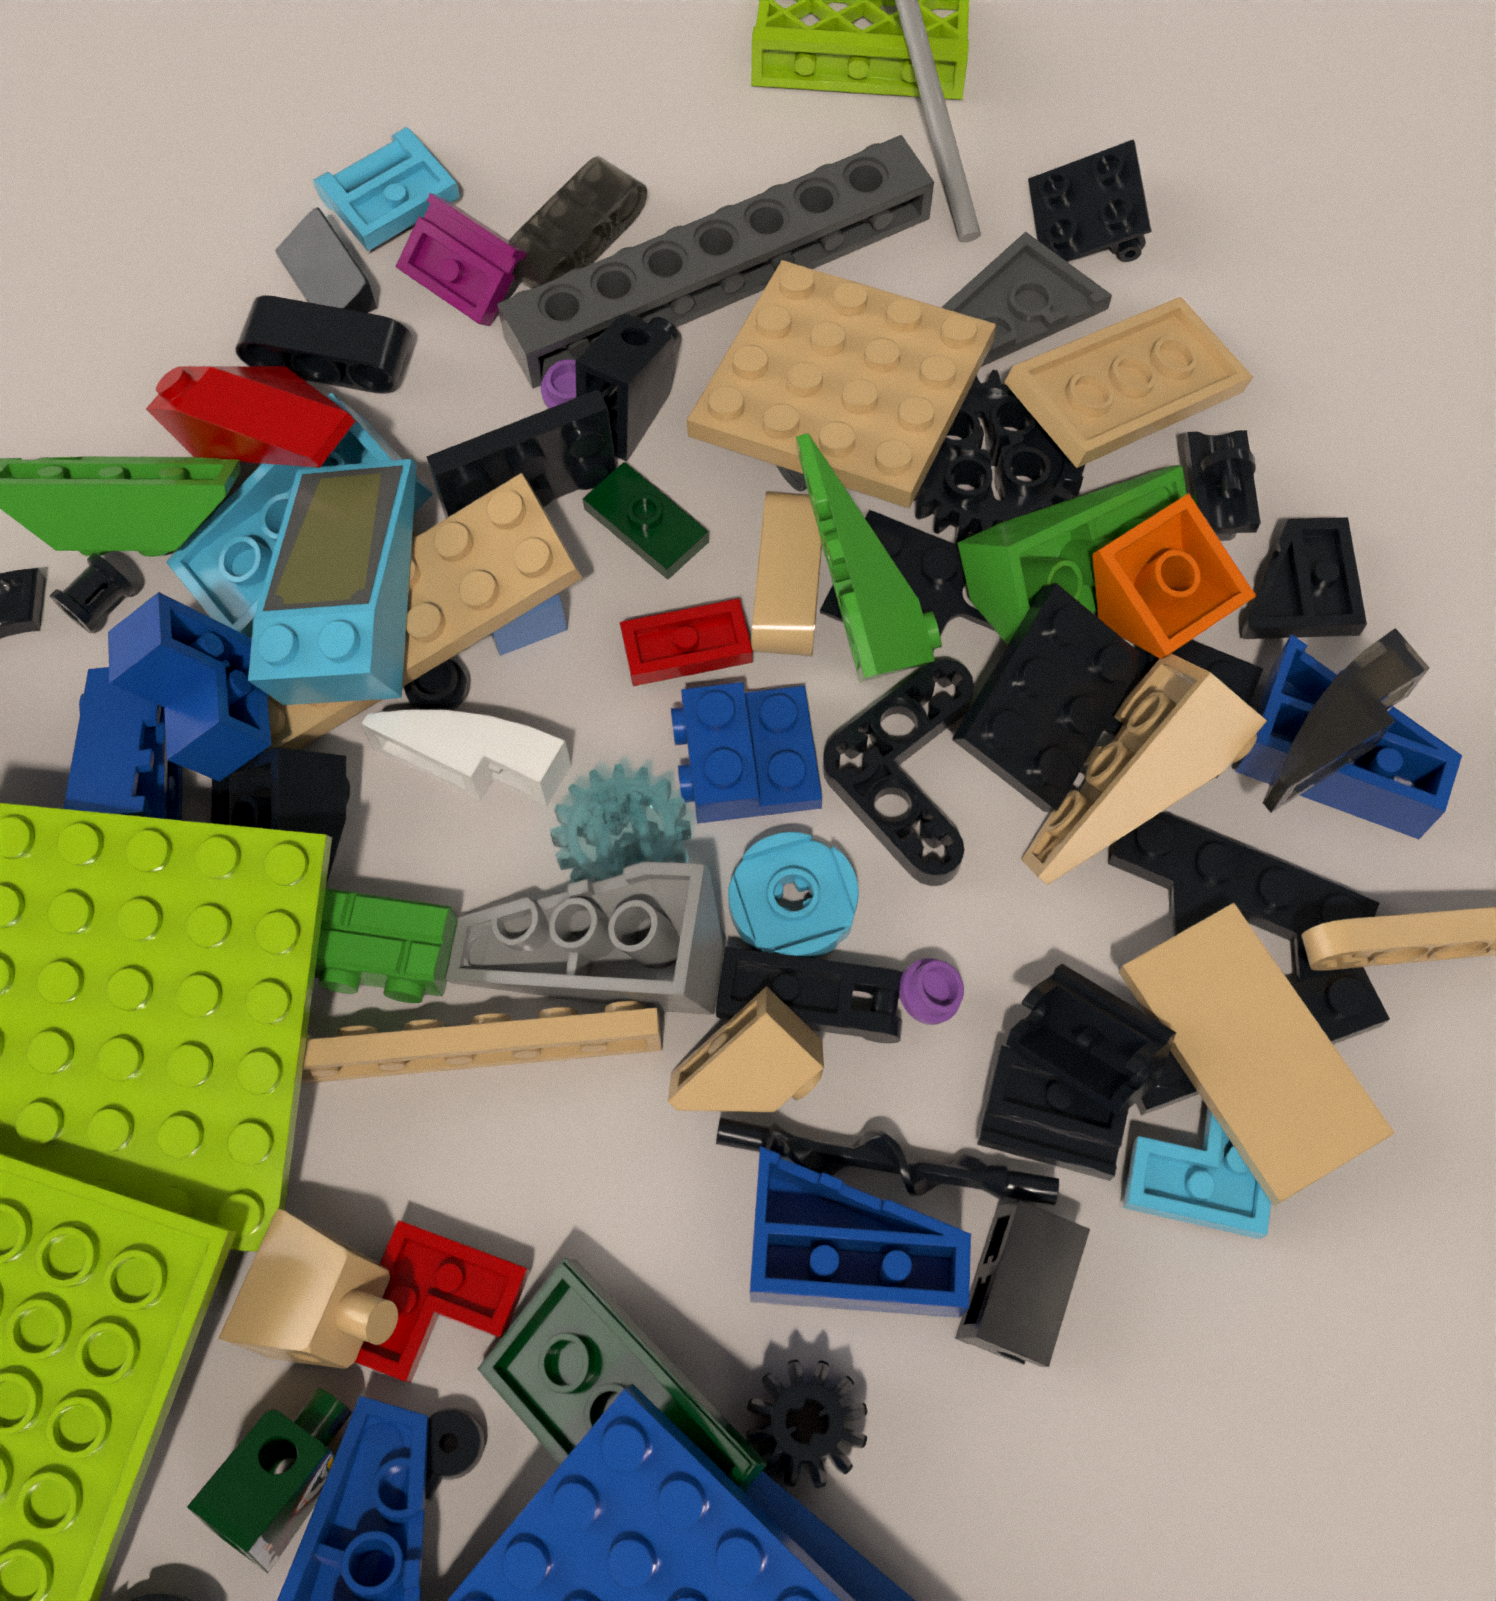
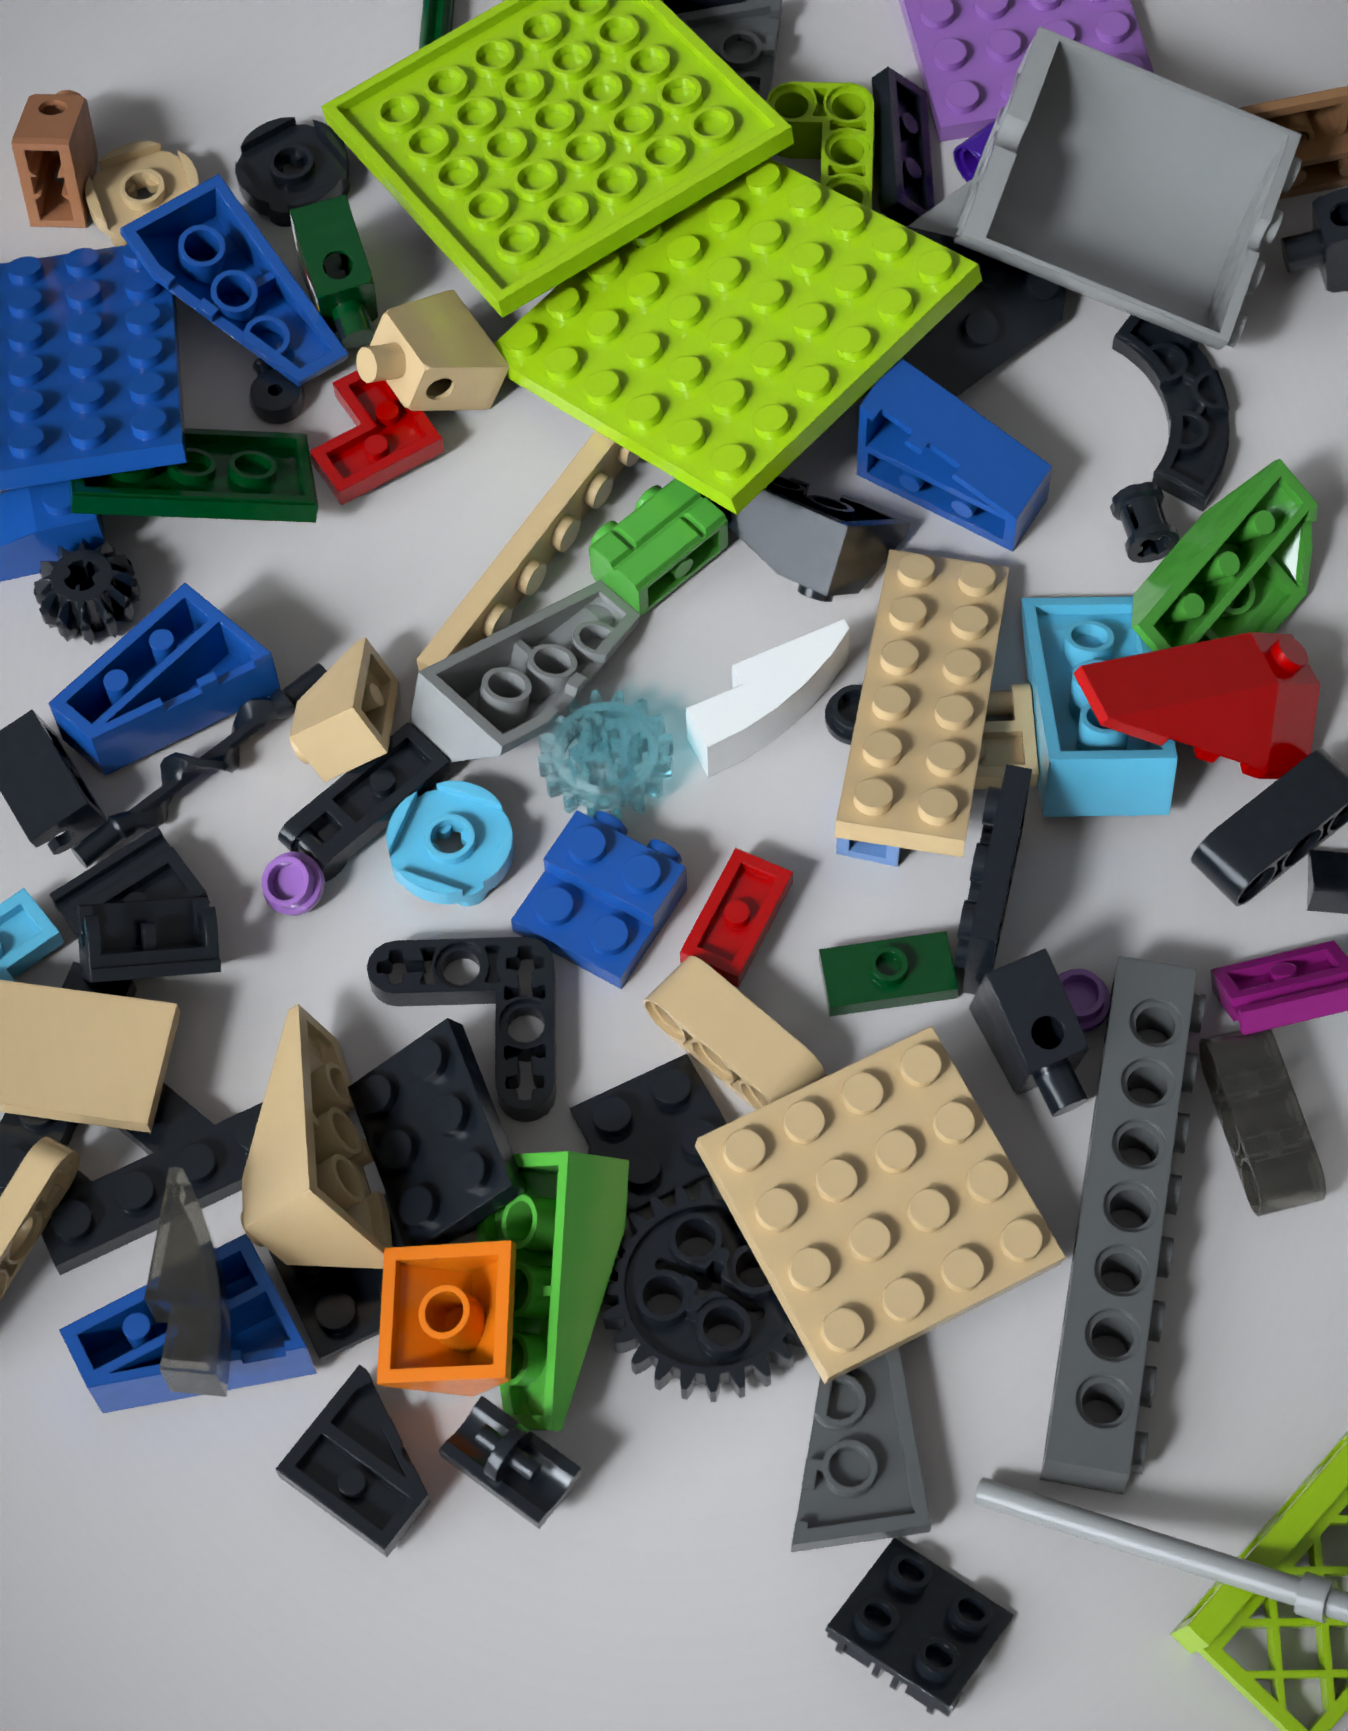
camera: 130 degrees right, 5 degrees down
(199, 678) = (948, 519): blue brick -> none
(338, 587) = (965, 649): slope -> none
(874, 599) = (645, 1053): bright green wedge -> none
(1127, 381) = (677, 1466): tan plate -> none

